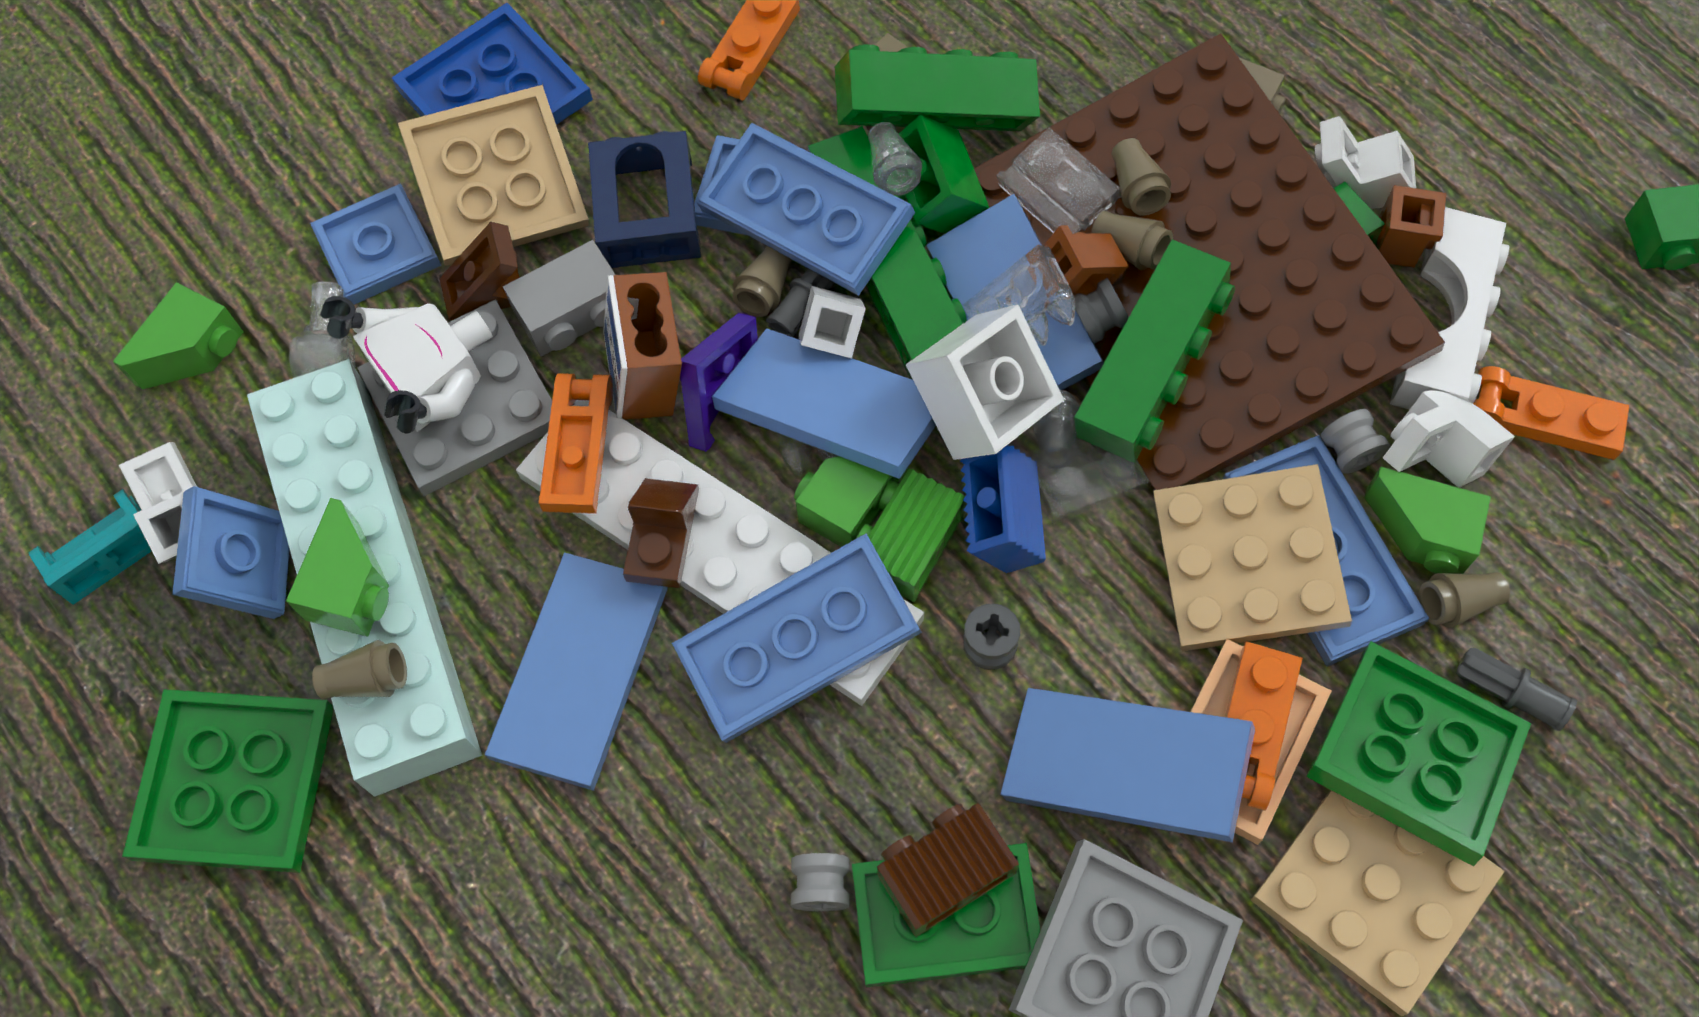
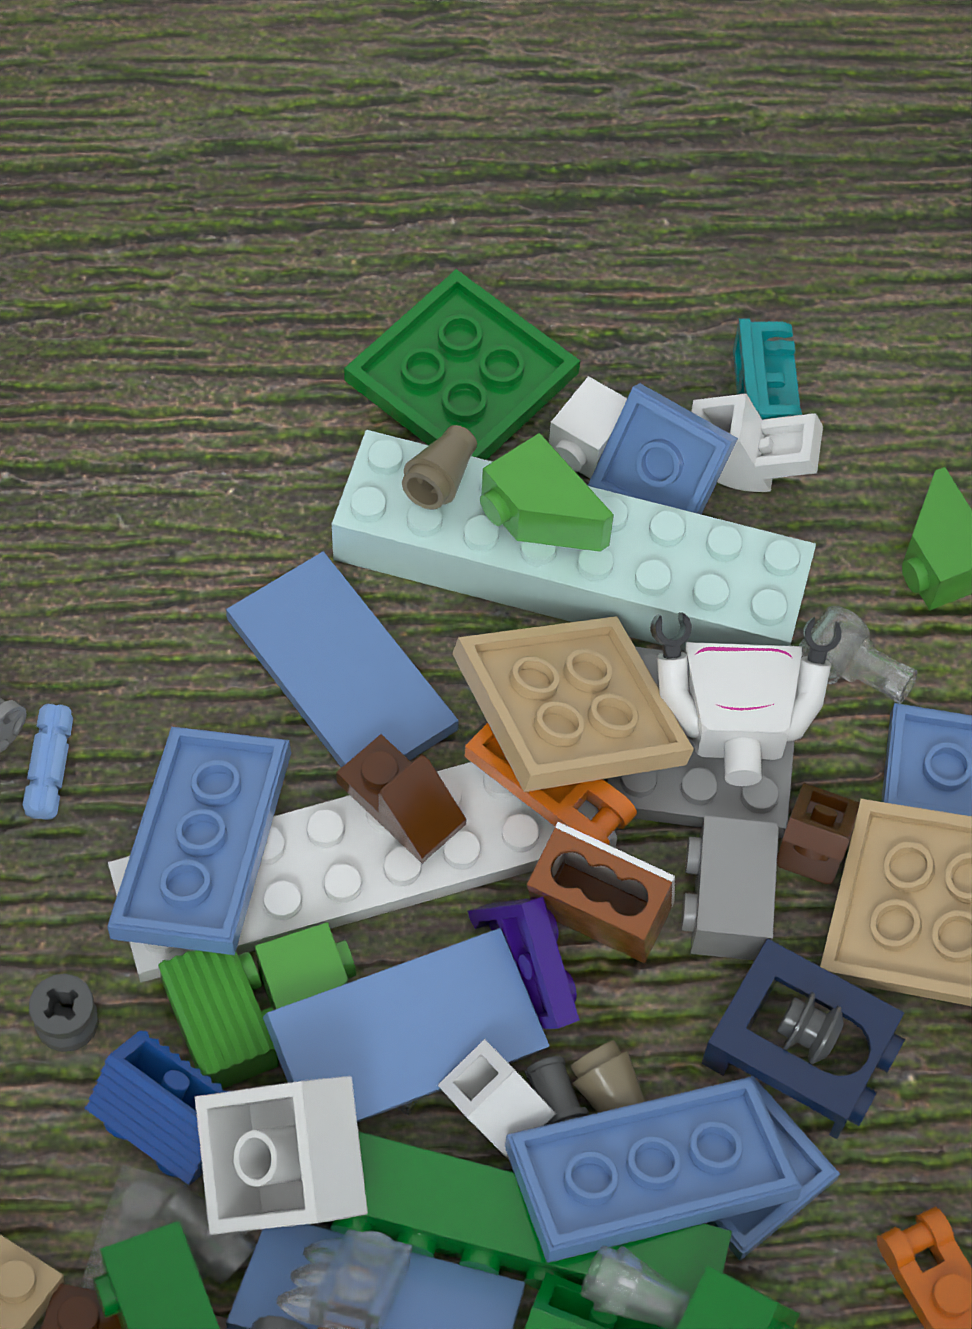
camera: 120 degrees right, 5 degrees down
(229, 638) = (586, 425): none -> white brick
(506, 456) = (571, 703): none -> tan plate
(640, 181) = (811, 1027): none -> dark grey wheel
(816, 814) = (48, 762): none -> light blue axle

